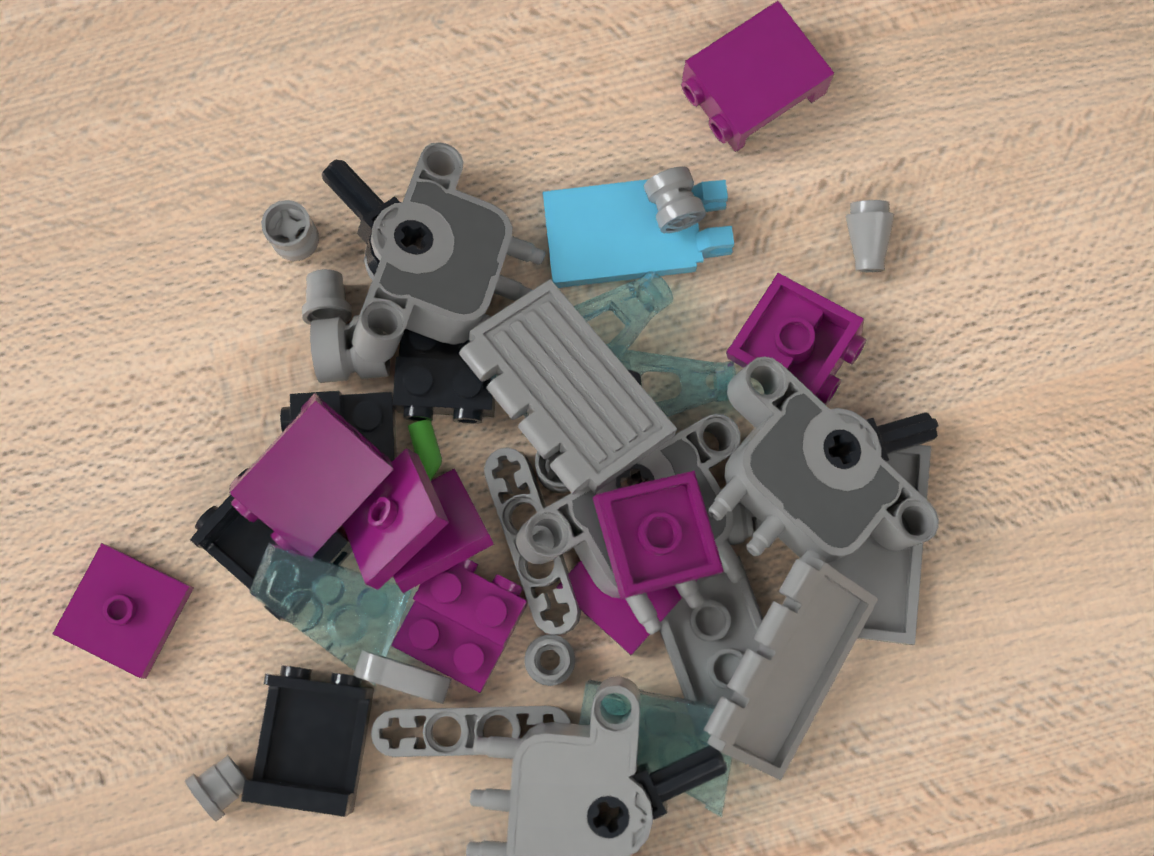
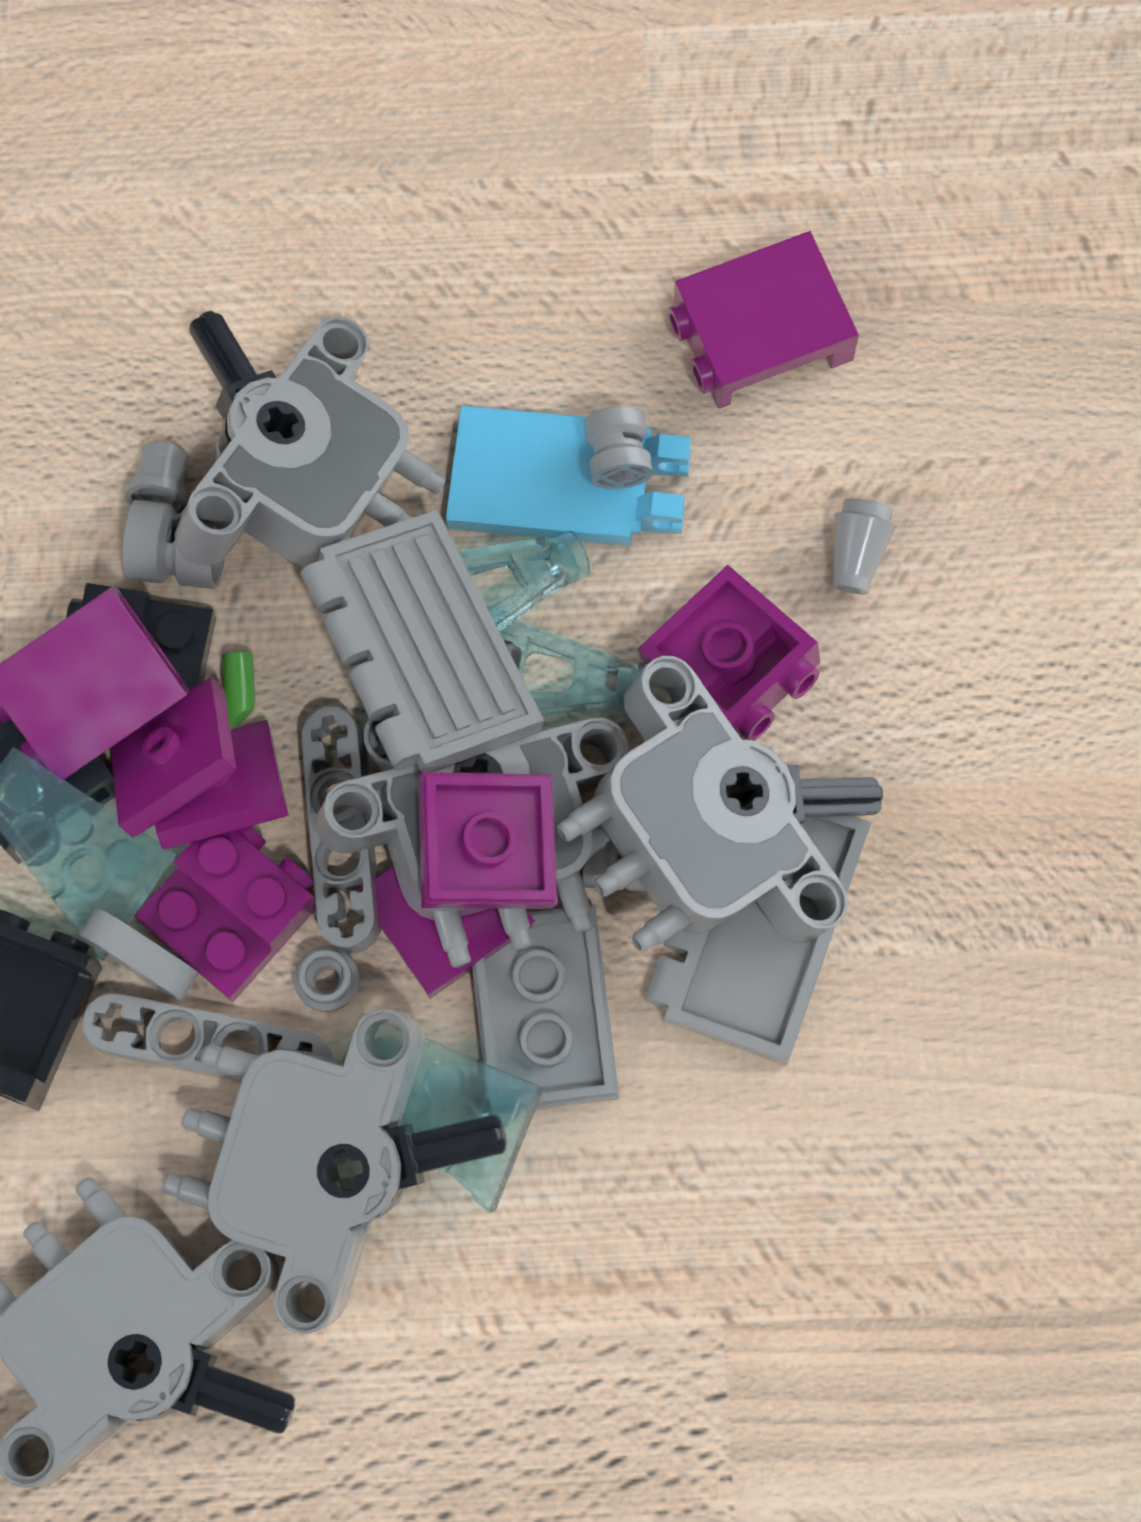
camera: 15 degrees right, 5 degrees down
(284, 221) = (130, 375): light grey wheel -> none
(438, 381) = (270, 610): black plate -> none
(792, 669) = (619, 1046): light grey hinge -> none

